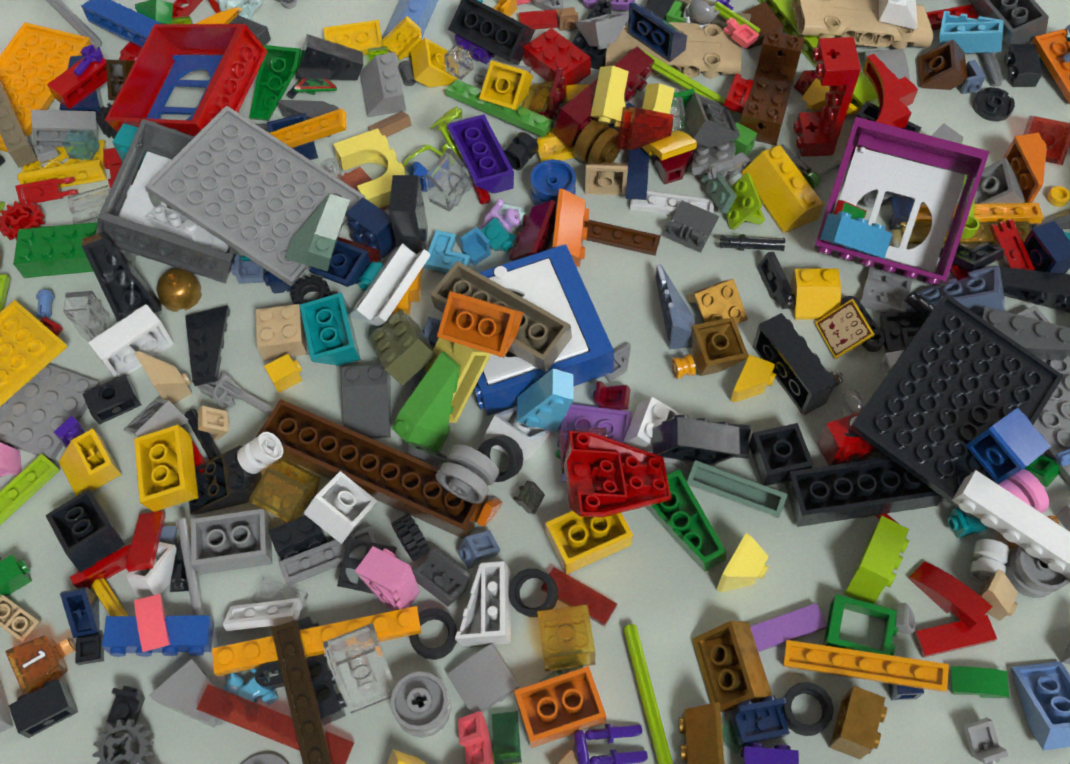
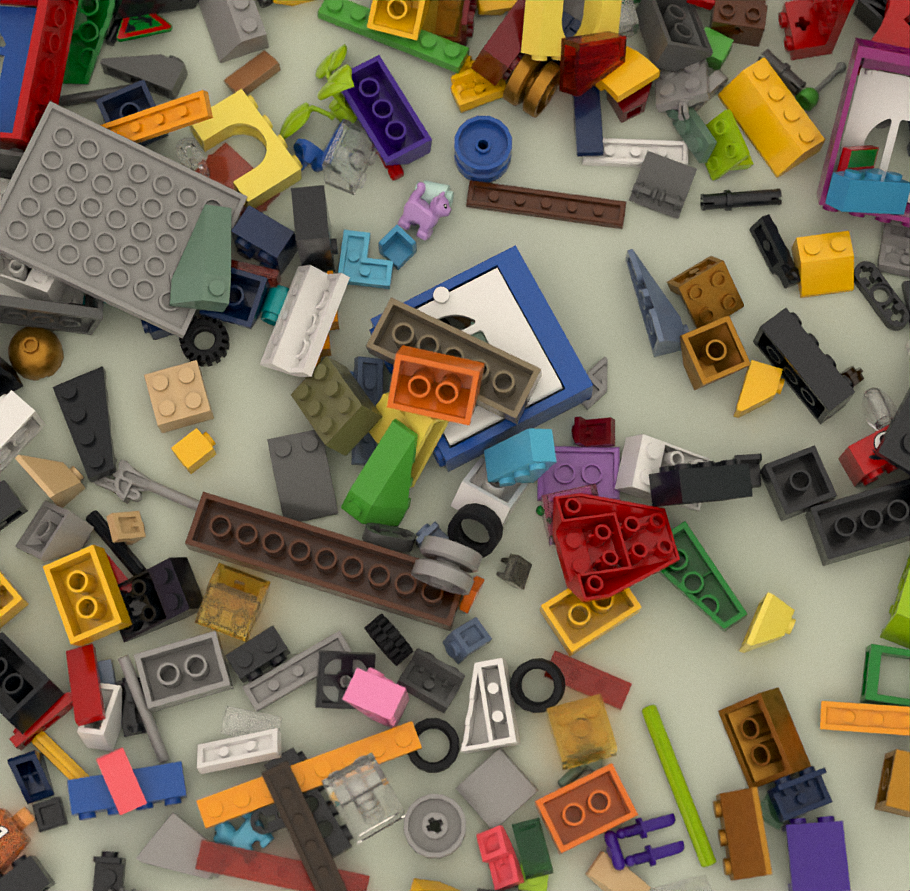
camera: 10 degrees left, 15 degrees up
(247, 271) = (118, 320): sand blue bracket -> none
(260, 453) = (196, 564): white wheel -> none
(330, 331) = (240, 389): teal slope -> none
(340, 507) = (303, 617): white brick -> none
(498, 235) = (424, 231): teal bracket -> none
(521, 150) = (432, 97): black wheel -> none
(536, 231) = (469, 228): dark red slope -> none
(570, 224) = (515, 211): orange slope -> none
(606, 178) = (551, 128): tan slope -> none
(683, 366) = (674, 381): light orange wheel -> none
(737, 489) = (751, 533): sand green brick -> none
(788, 627) = (821, 684): medium lavender tile -> none
(823, 698) = (868, 765): black tyre -> none
(844, 328) = (861, 308): piece -> none

